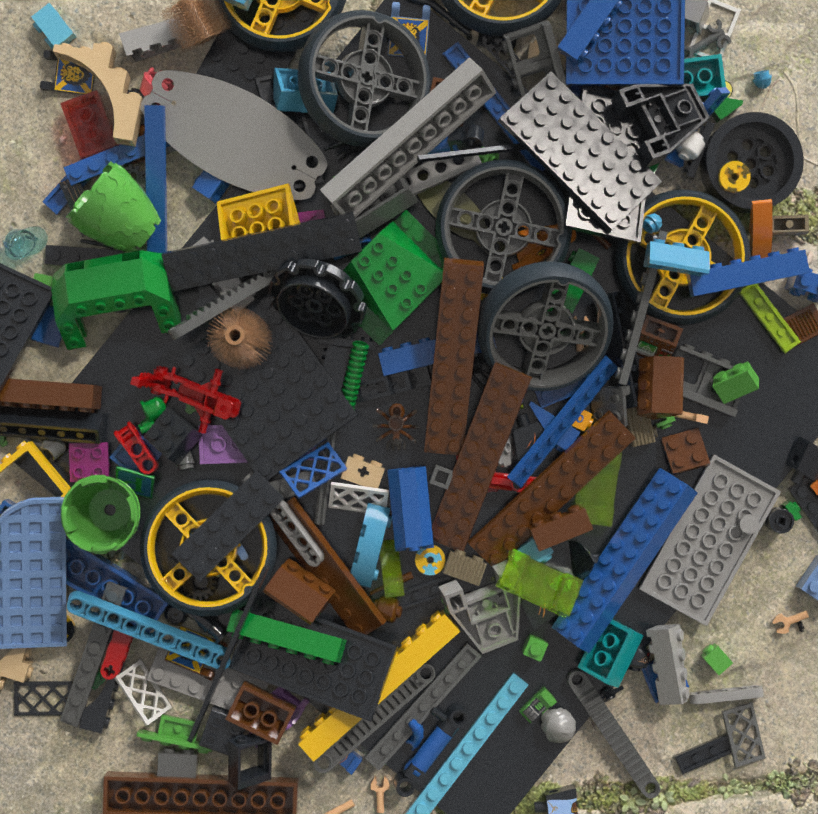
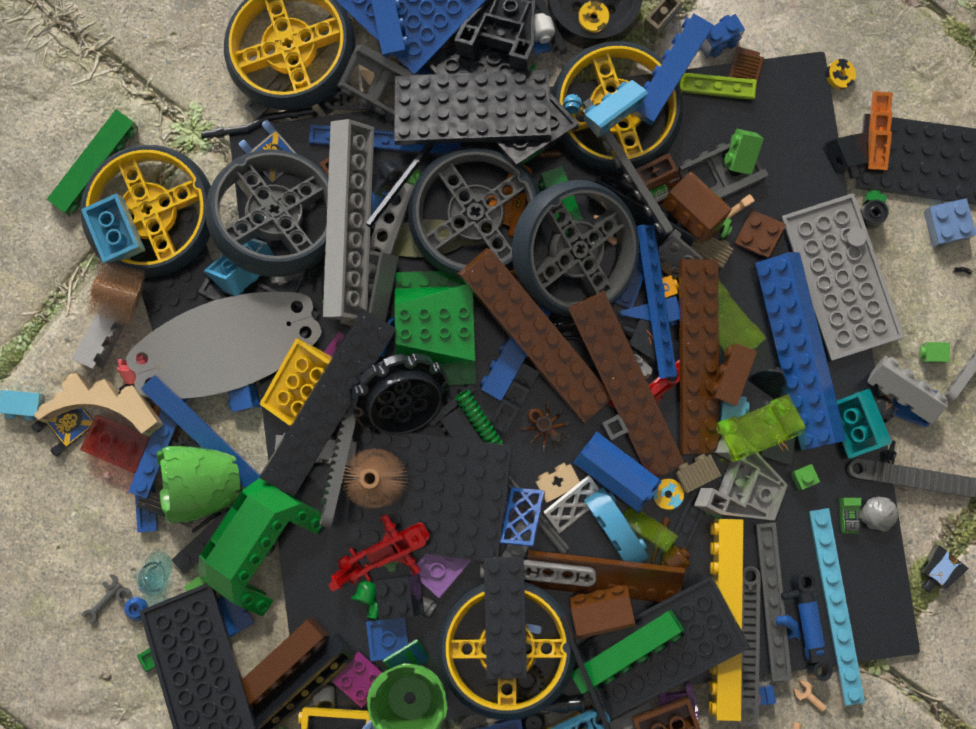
camera: 50 degrees left, 5 degrees down
(129, 441) = (373, 633): red piece -> none
(761, 228) = (647, 31): orange slope -> none
(788, 621) = (955, 274): light nougat bar -> none

